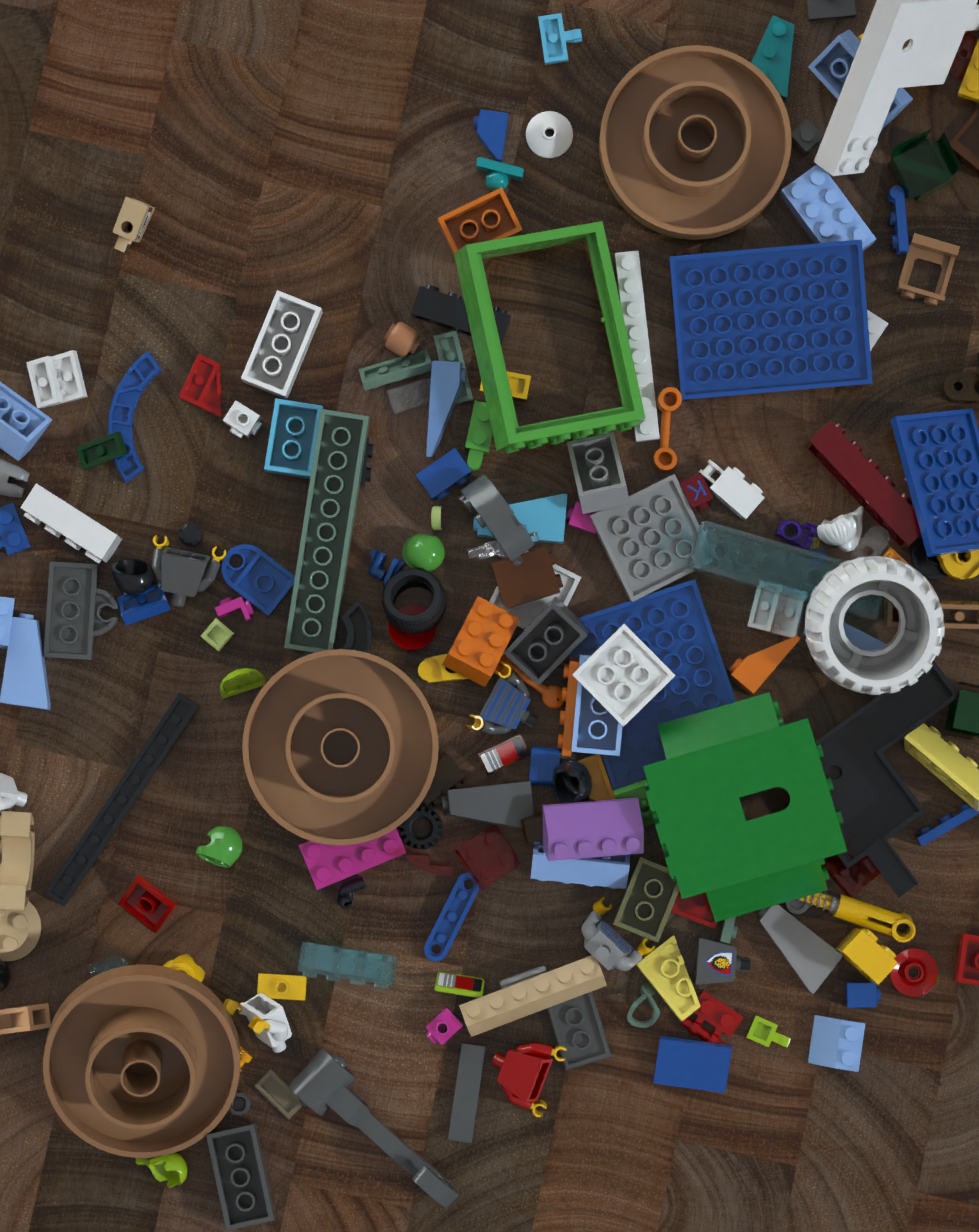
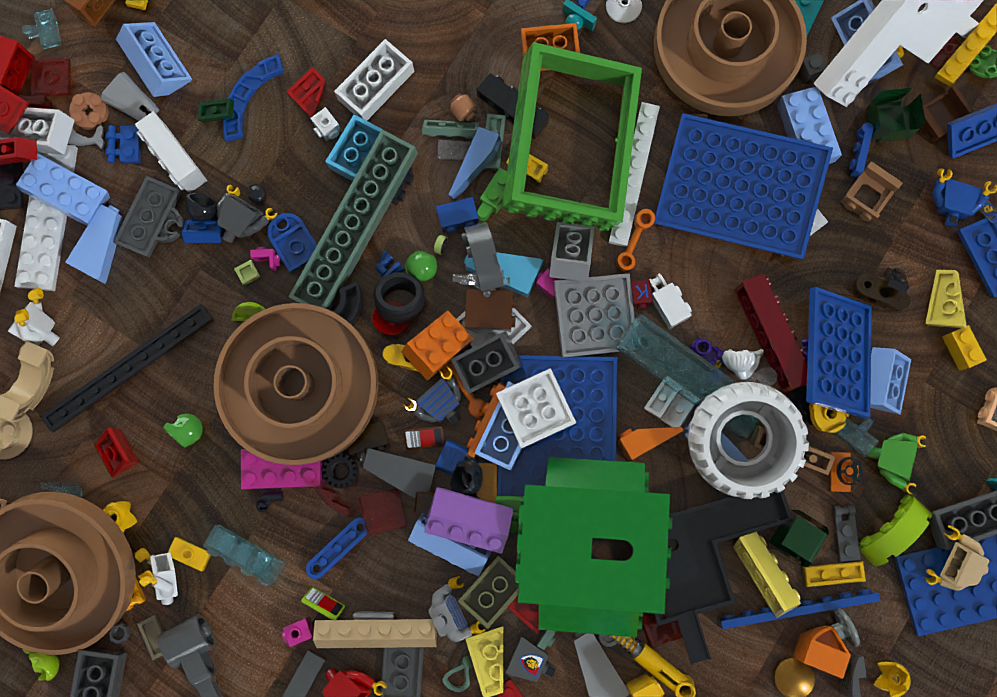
camera: 25 degrees right, 5 degrees down
(56, 379) = (206, 52): white slope -> none

